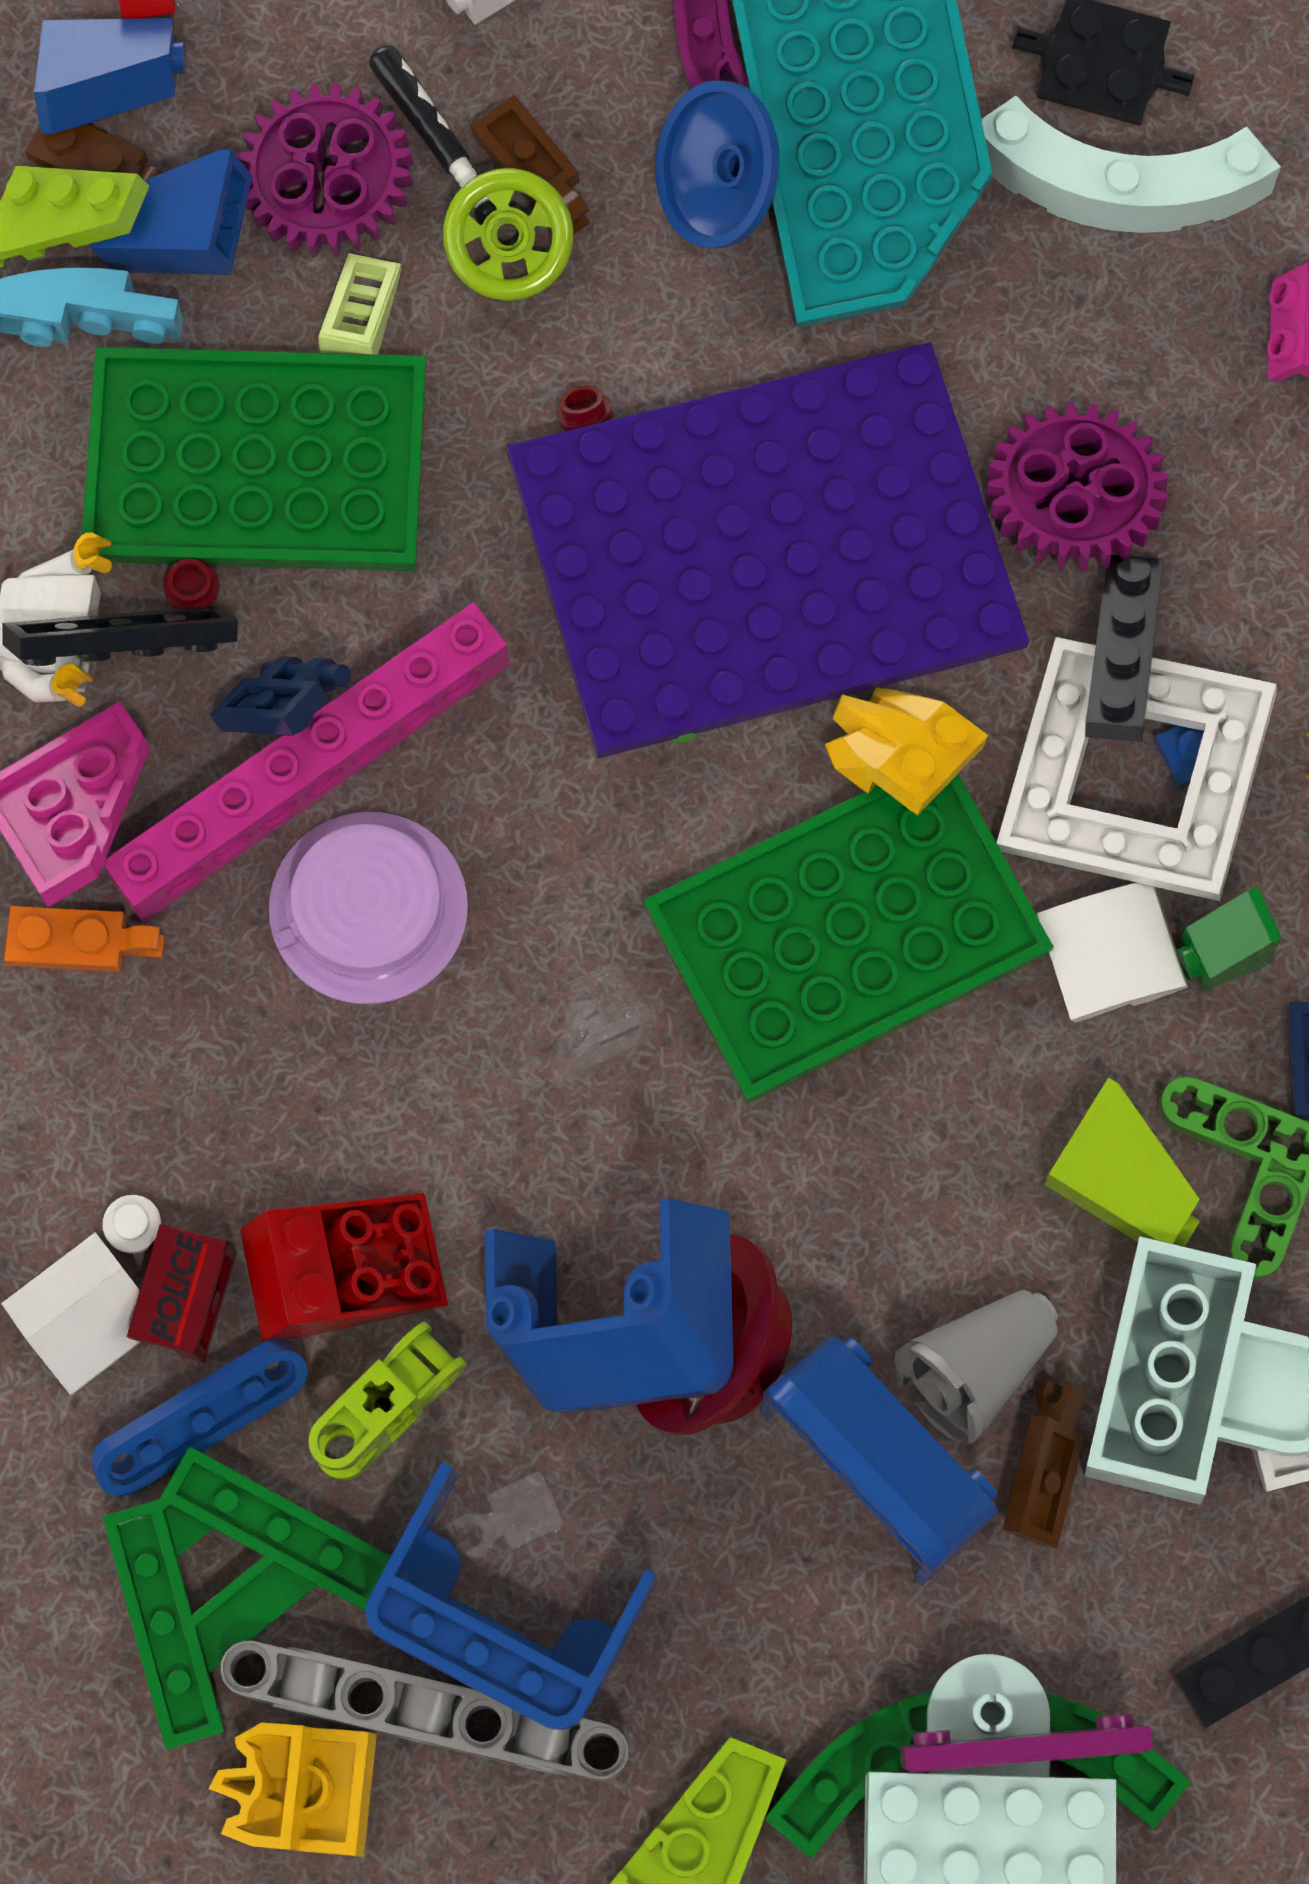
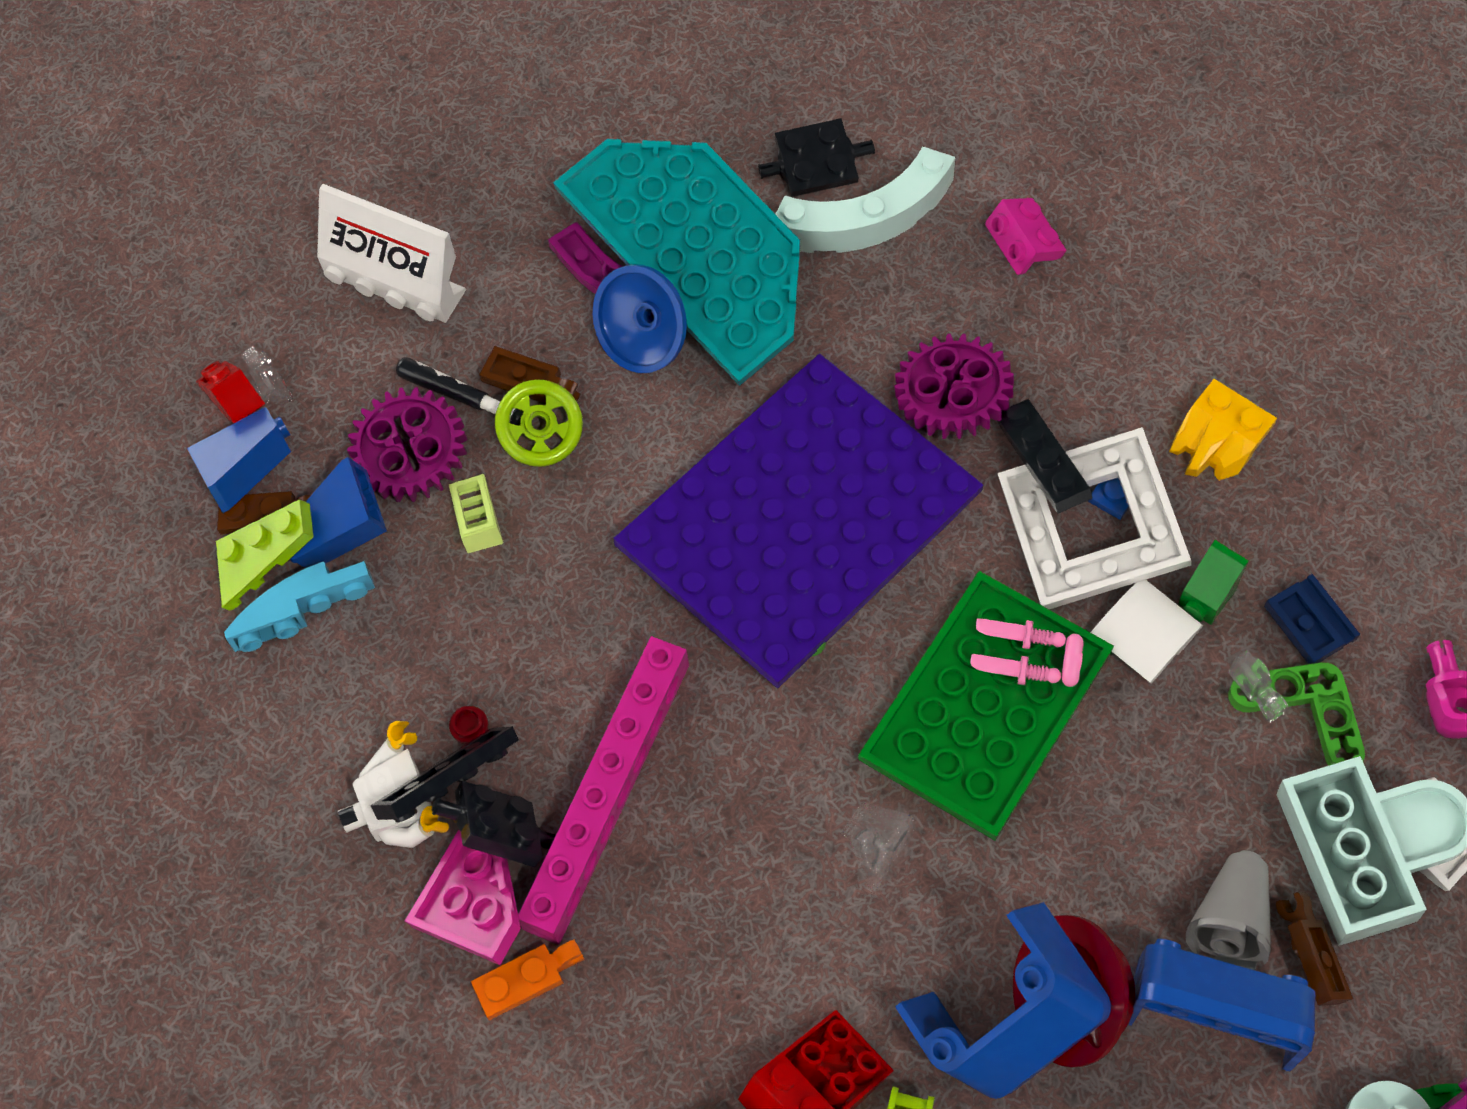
camera: 25 degrees left, 10 degrees down
(144, 731) = (496, 823): none -> black plate
(256, 458) = (464, 629): green plate -> none
(281, 698) = (566, 756): dark blue plate -> none
(368, 907) = (693, 856): lavender piece -> none
(583, 407) = (642, 495): dark red plate -> none
(902, 745) = (951, 579): yellow plate -> none
(913, 910) = (1072, 656): none -> bright pink piece
(1124, 1173) = (1240, 751): lime slope -> none
(1197, 1091) = (1255, 682): none -> clear plate

